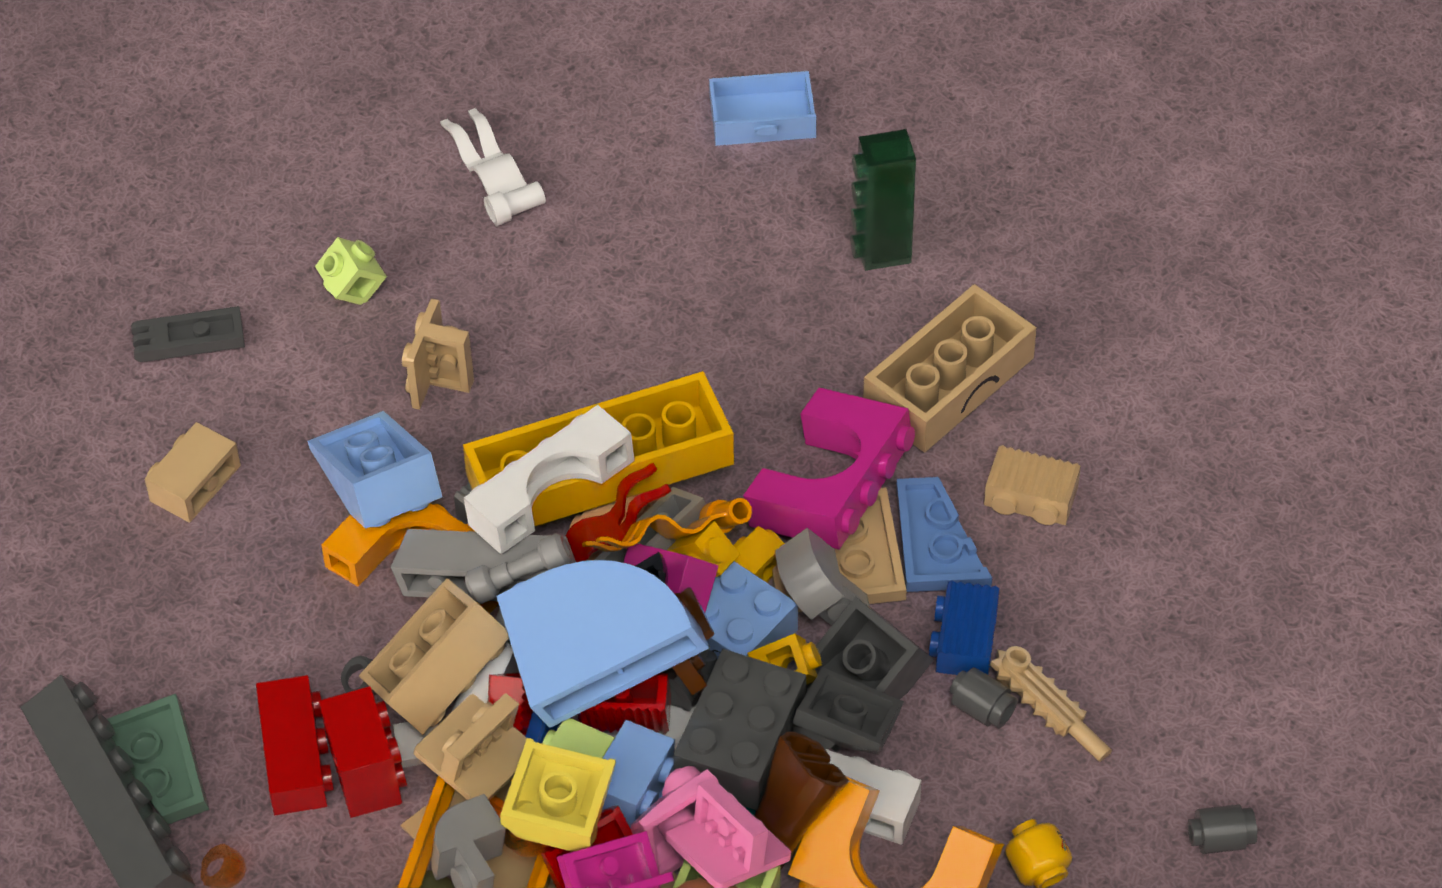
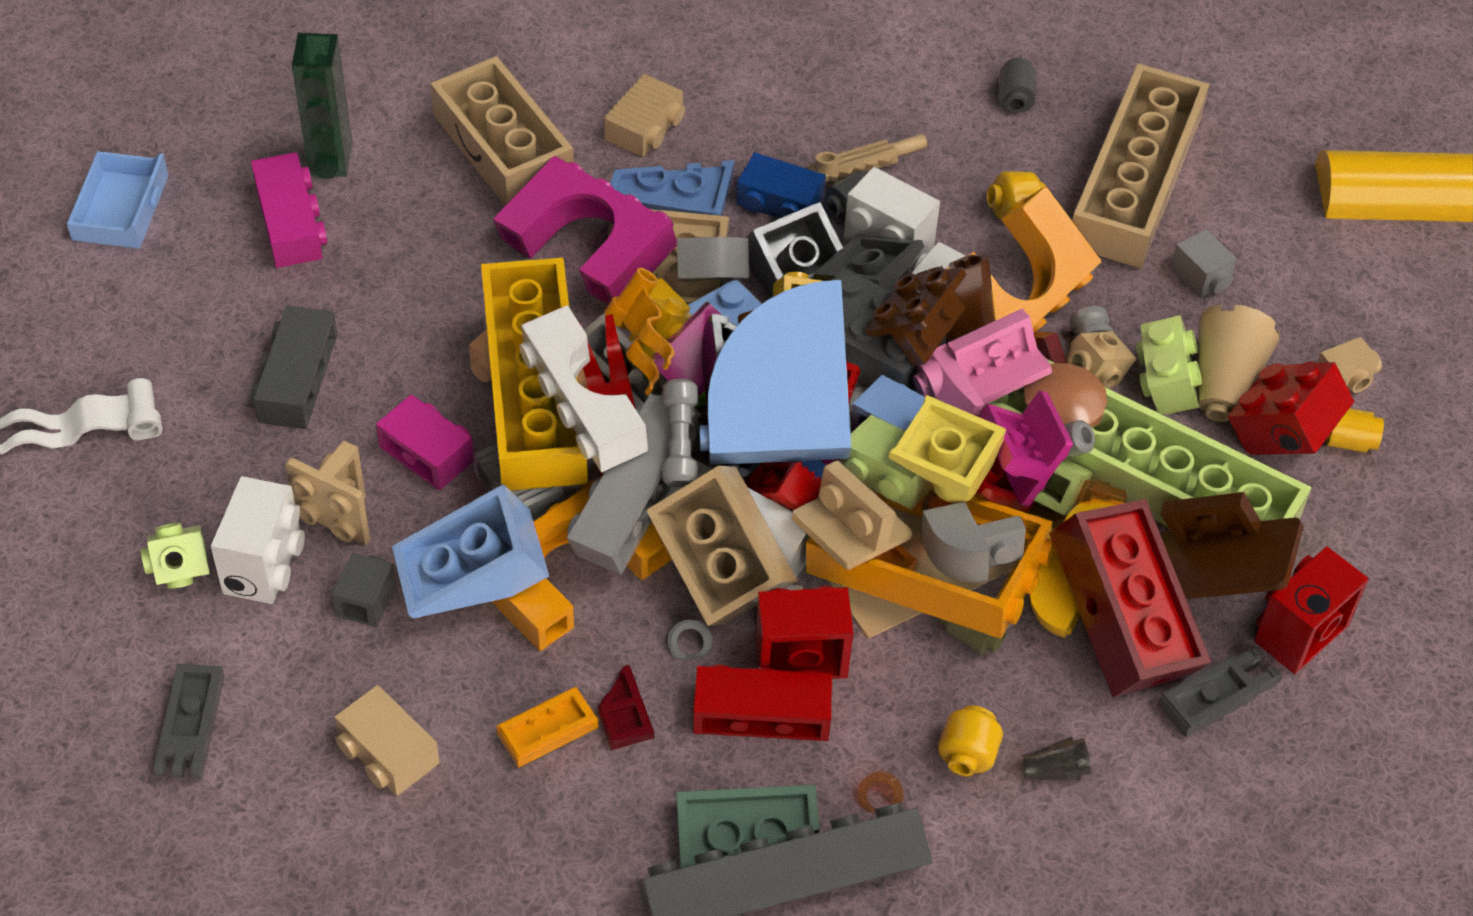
camera: 80 degrees left, 0 degrees up
(236, 587) = (547, 727): none -> light orange plate
(269, 644) = (624, 713): none -> dark red tile
(347, 405) = (364, 589): none -> dark grey brick
(368, 315) = (257, 540): none -> white brick
(532, 399) = (425, 441): none -> dark pink brick
(593, 294) = (294, 367): none -> dark grey brick
(734, 741) = (920, 312): none -> reddish brown bracket
(788, 232) = (289, 209): none -> dark pink brick
(930, 726) = (891, 209): none -> white brick

